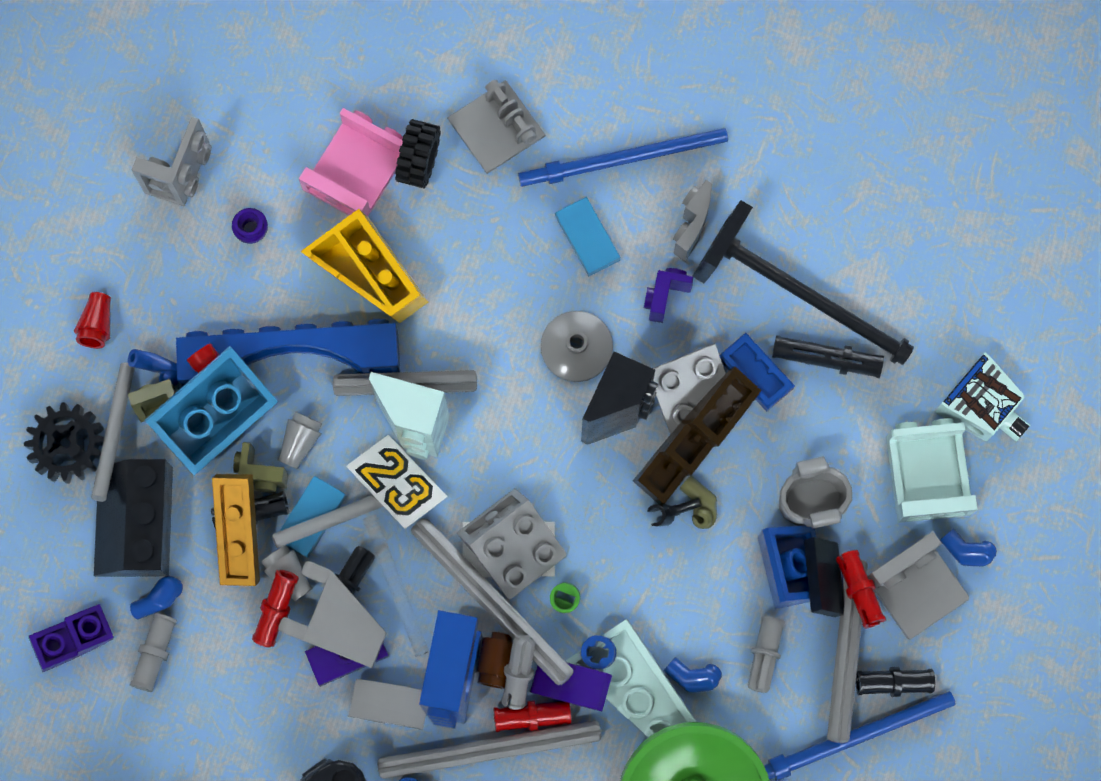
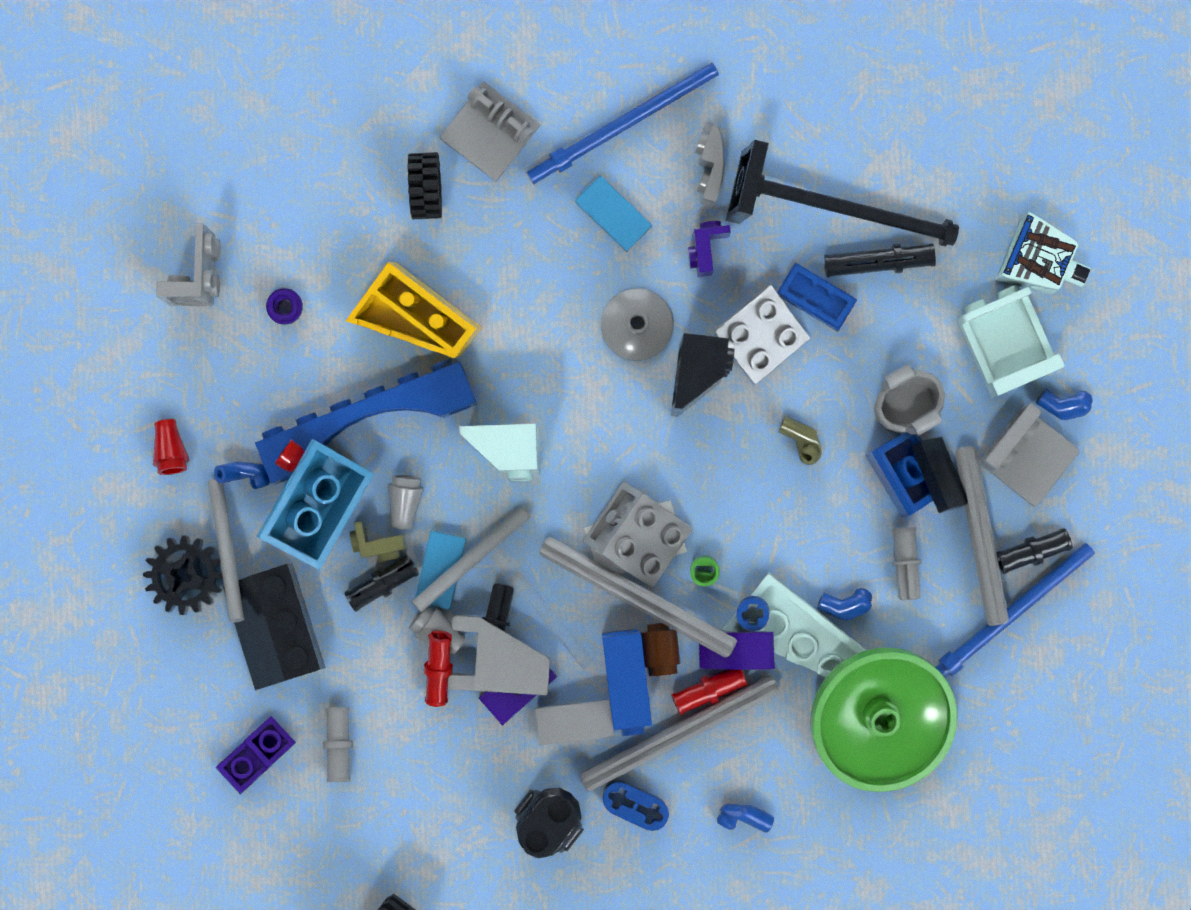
camera: 20 degrees left, 10 degrees up
(150, 398) = (254, 506): olive bracket -> none
(158, 599) = (325, 693): blue arm -> none
(236, 529) = (376, 607): pearl gold plate -> none
(354, 165) = (366, 214): bright pink panel -> none
(396, 481) = (510, 511): sticker -> none
(439, 380) = (486, 413): light grey axle -> none
(518, 672) = (686, 657): light grey axle -> none
(669, 512) = (777, 457): black hand -> none
(696, 435) = (779, 377): dark brown slope -> none
(860, 589) = (978, 477): red pin -> none

